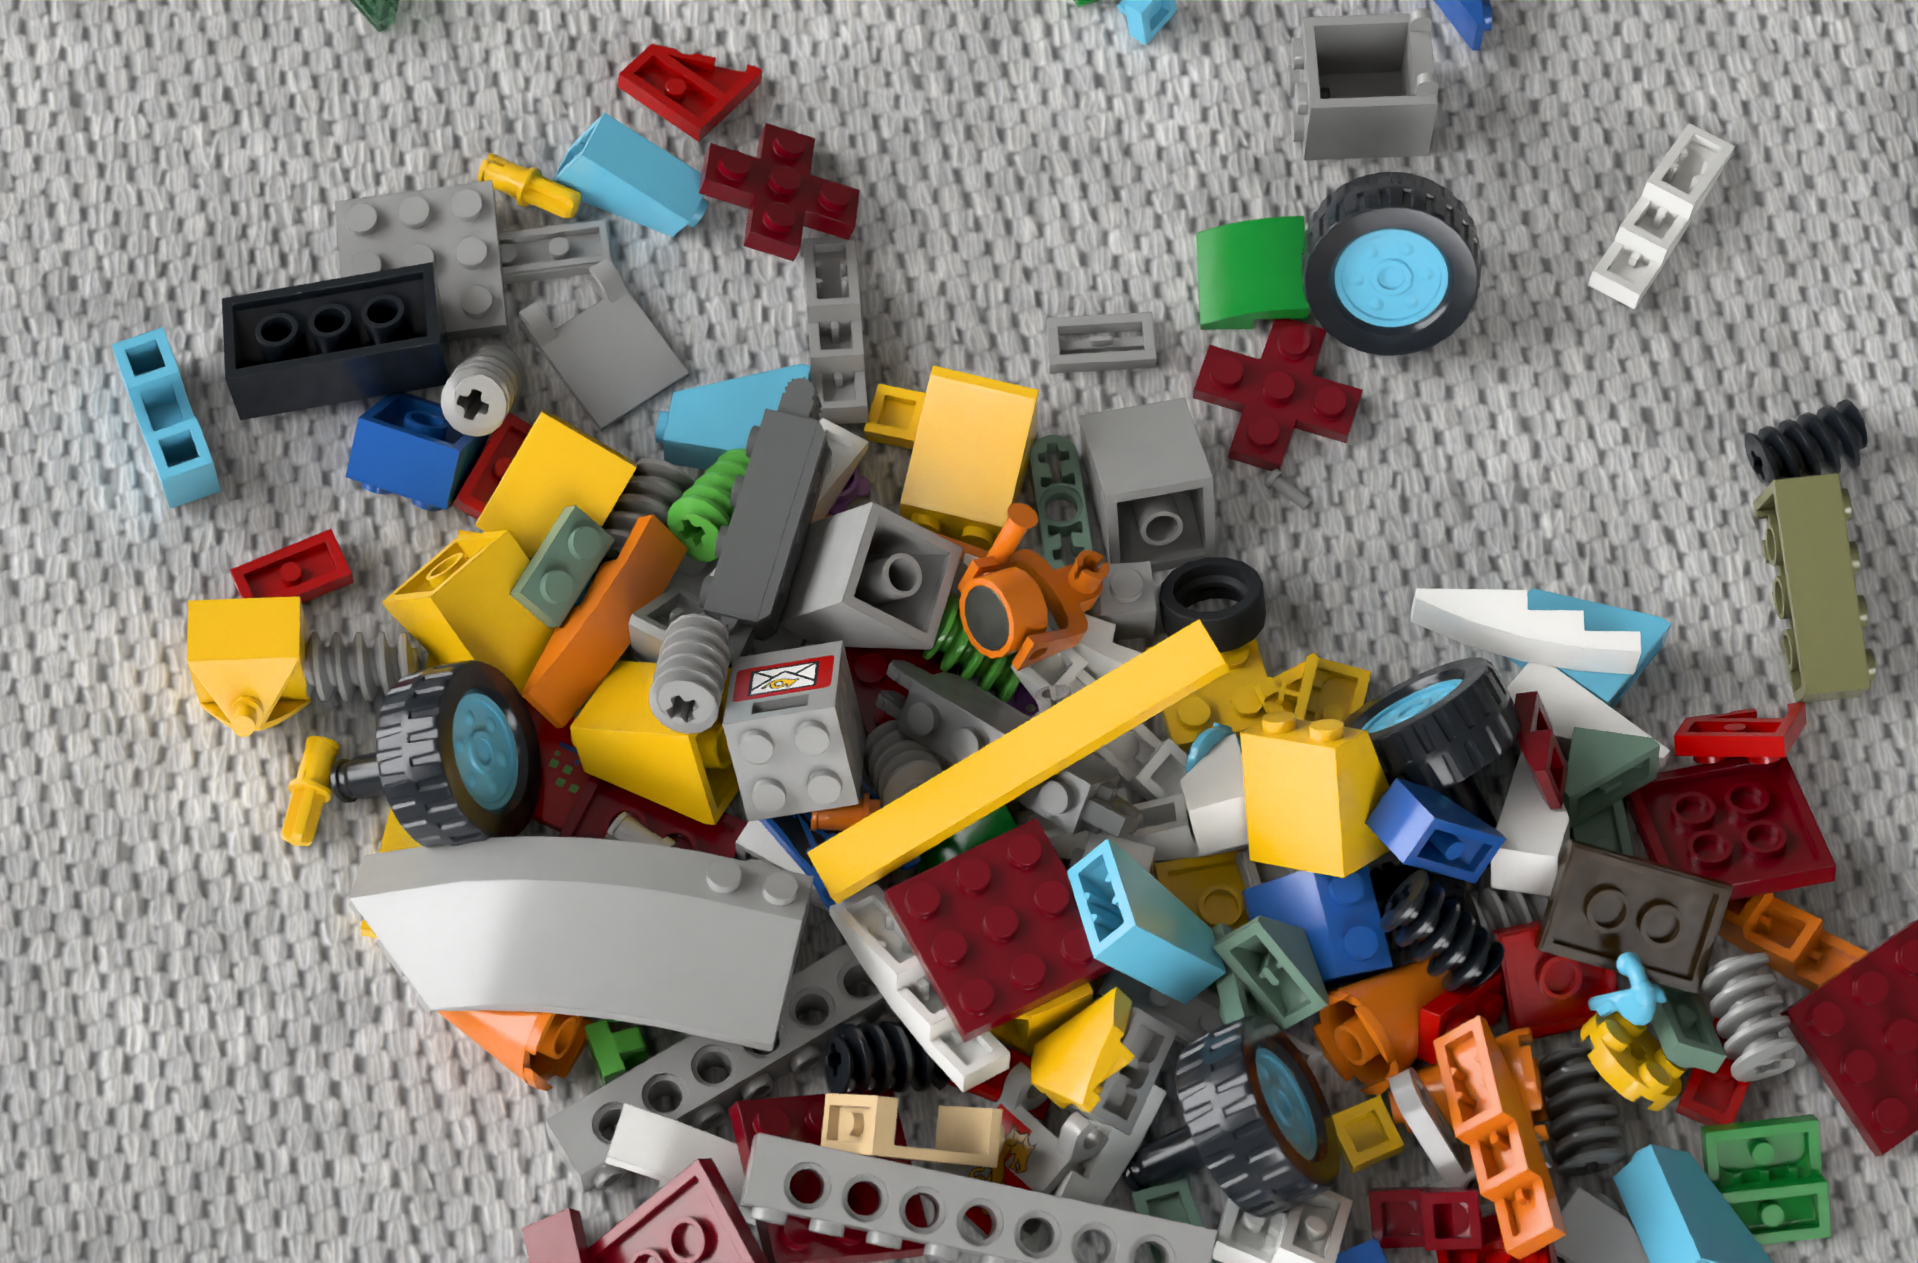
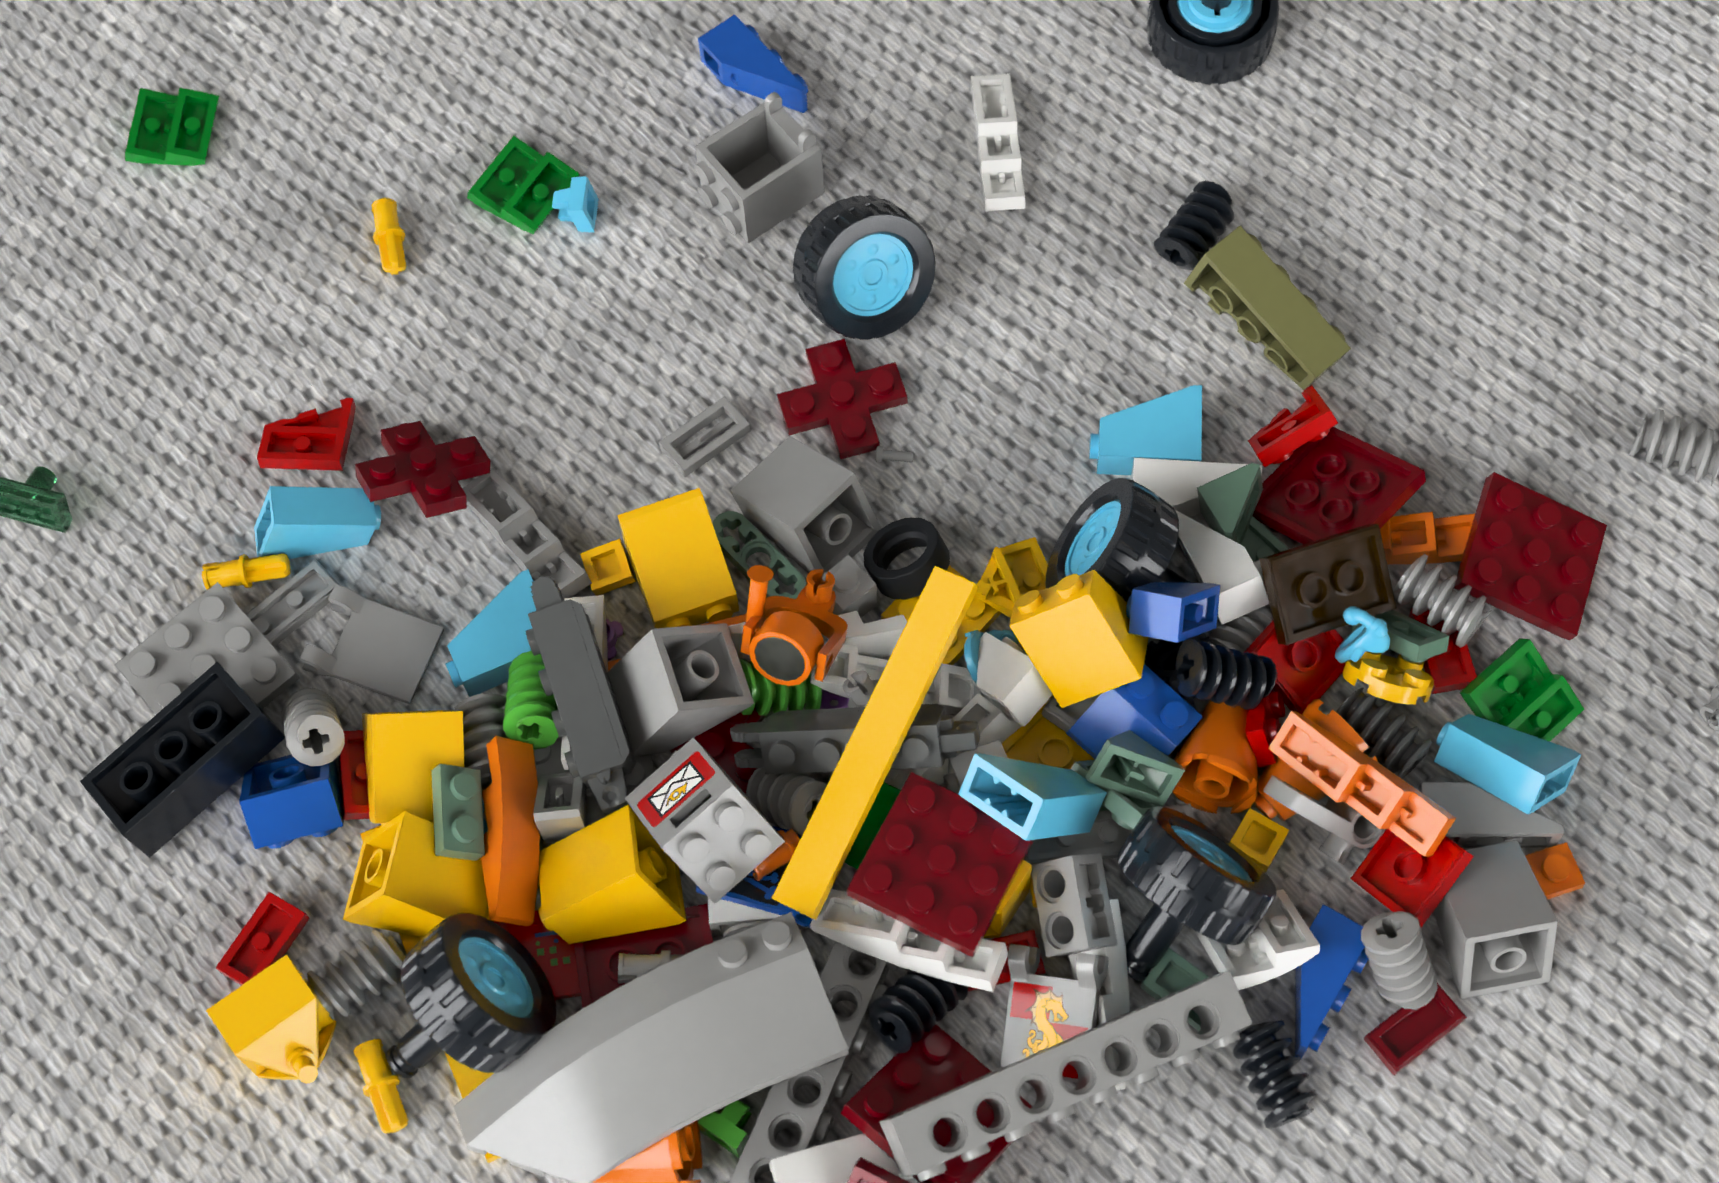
camera: 30 degrees left, 0 degrees up
(166, 418) = (94, 890): medium azure arch -> none
(690, 673) = (607, 827): light grey piece -> none
(869, 1124) = (957, 1060): tan panel -> none
(1083, 1053) = (1054, 910): yellow slope -> none
(1251, 272) = (770, 331): green slope -> none
(1427, 1217) = (1343, 866): dark red slope -> none
(1503, 625) = (1110, 450): white slope -> none
(1541, 749) = (1195, 516): dark red slope -> none

